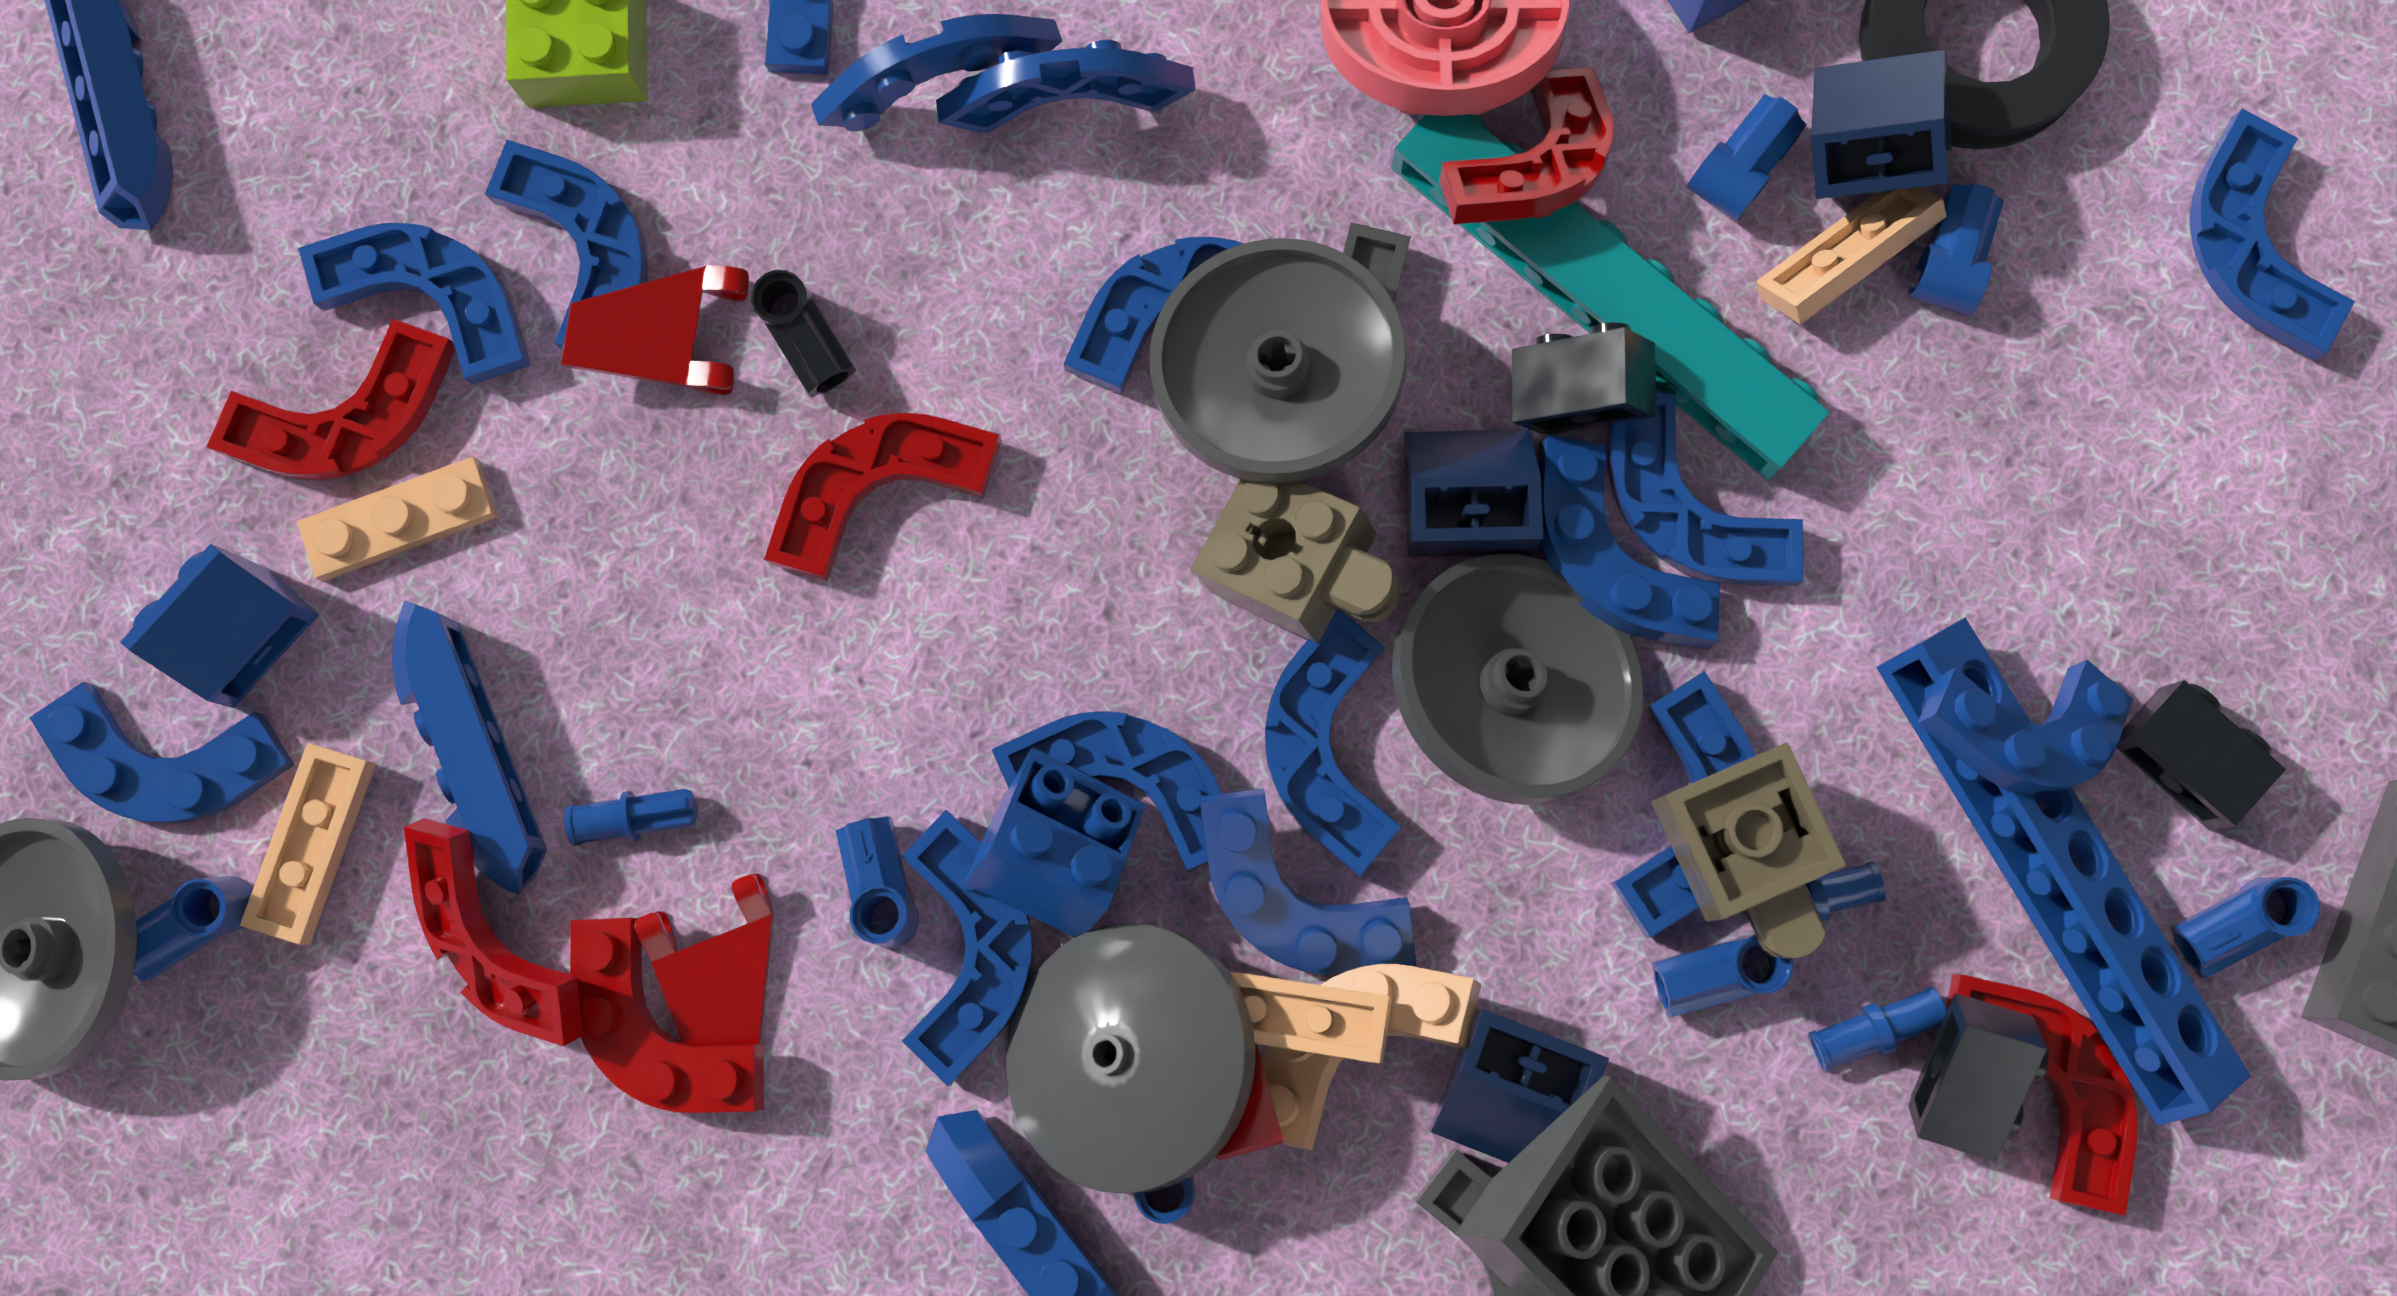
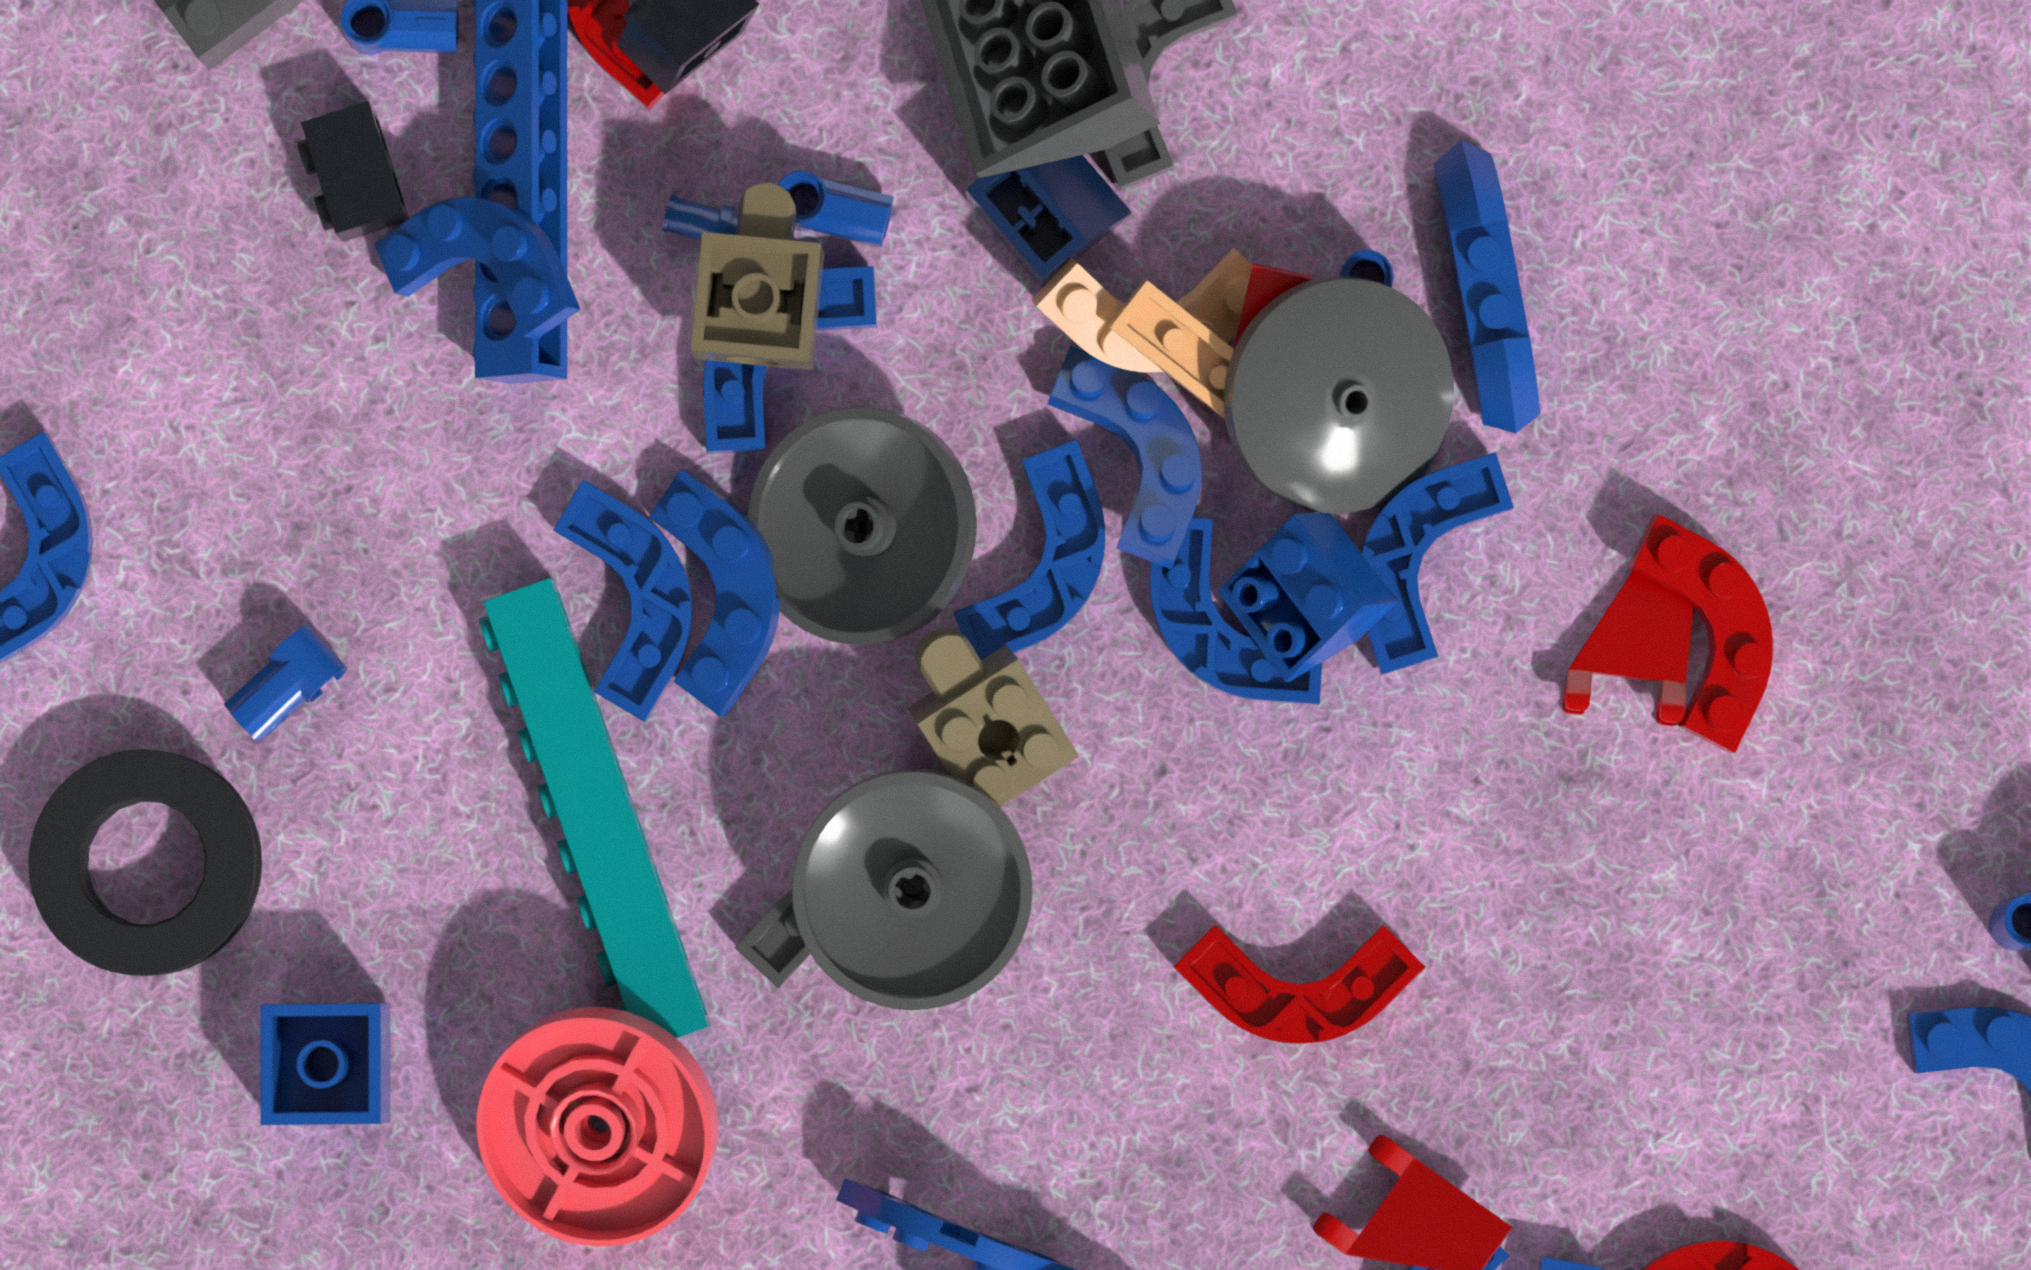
camera: 155 degrees left, 5 degrees up
(219, 625) = (1904, 1151): blue slope -> none
(308, 844) = (1922, 934): light nougat plate -> none
(397, 519) = (1719, 1179): light nougat plate -> none
(477, 771) = (1758, 866): blue brick -> none
(499, 982) = (1830, 797): red plate -> none
(630, 816) = (1644, 813): blue axle -> none
(802, 334) = (1292, 1141): black piece -> none
(876, 876) = (1468, 654): blue piece -> none
(1129, 307) = (991, 1024): blue plate -> none
(1472, 493) = (808, 703): dark blue slope -> none
(1549, 174) = (589, 926): red plate -> none
(1584, 380) = (667, 737): black brick -> none
(1740, 167) = (418, 858): blue piece -> none
(1849, 251) = (373, 734): light nougat plate -> none
(1878, 1029) = (735, 100): blue pin -> none
(1881, 125) = (296, 814): dark blue slope -> none

